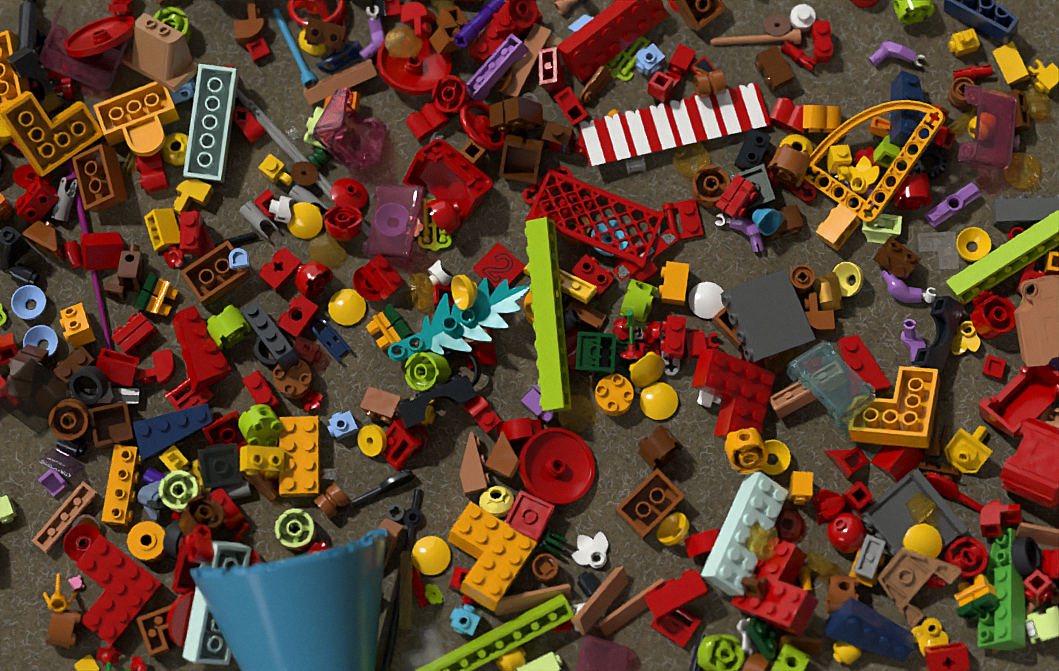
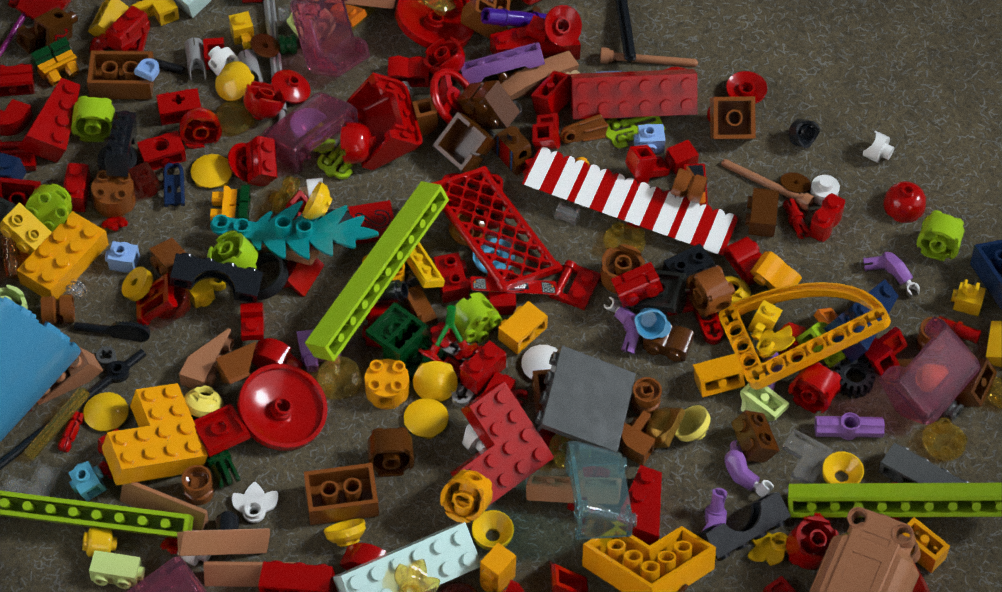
camera: 30 degrees right, 20 degrees down
(433, 594) = (79, 443): lime plant -> none

